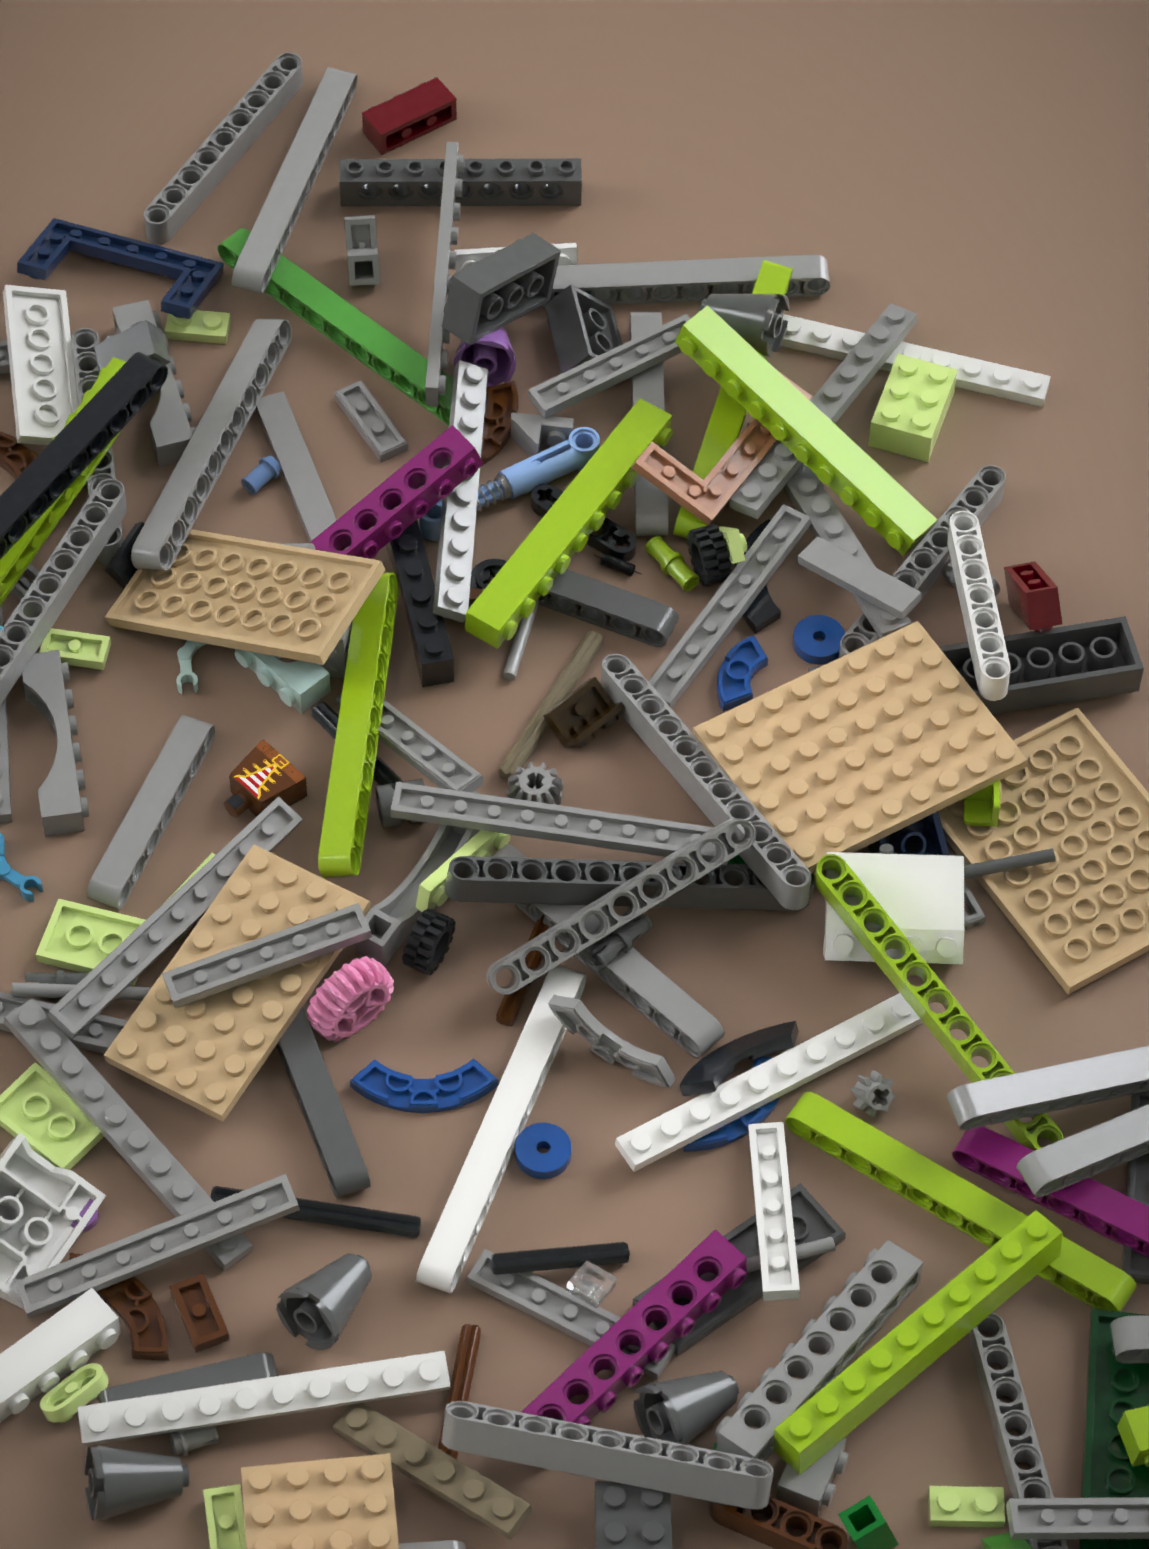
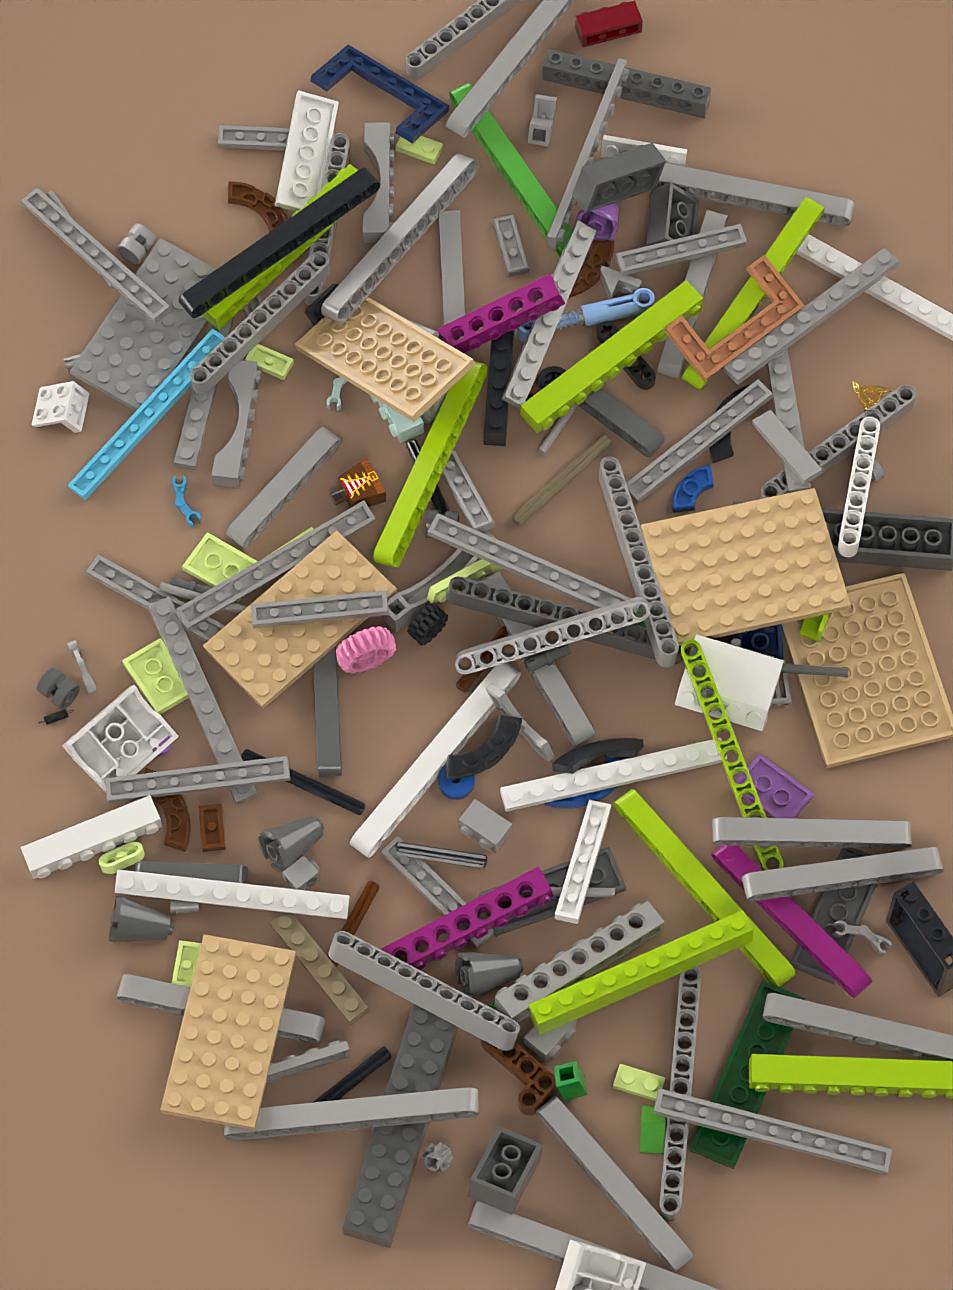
camera: 20 degrees right, 10 degrees up
(140, 337) = (372, 156): brick -> none
(259, 476) = (426, 267): medium blue pin -> none
(359, 1341) = (302, 874): none -> light grey brick
(424, 1095) = (394, 723): blue tile -> none
(536, 785) = (530, 529): light grey gear -> none
(581, 1095) = (488, 753): none -> black tile
(582, 714) = (579, 492): dark brown bracket -> none
(591, 1284) = (455, 877): clear tile -> none
(609, 1201) = (485, 826): none -> light grey brick
(617, 564) = (639, 391): black piece -> none
(672, 563) = (674, 400): lime pin -> none
(709, 554) = (698, 401): black tyre -> none
(735, 543) = (713, 398): yellowish green plate -> none
(754, 317) = (777, 241): dark grey cone -> none
(805, 430) = (787, 332): brick -> none
(818, 627) = (748, 470): blue piece -> none
(873, 1093) = (678, 806): light grey gear -> none
(912, 407) = (873, 328): yellowish green brick -> none
(941, 487) = (876, 391): none -> clear yellow piece
(1018, 1040) = (777, 791): none -> medium lavender tile
(1033, 596) = (899, 488): dark red brick -> none

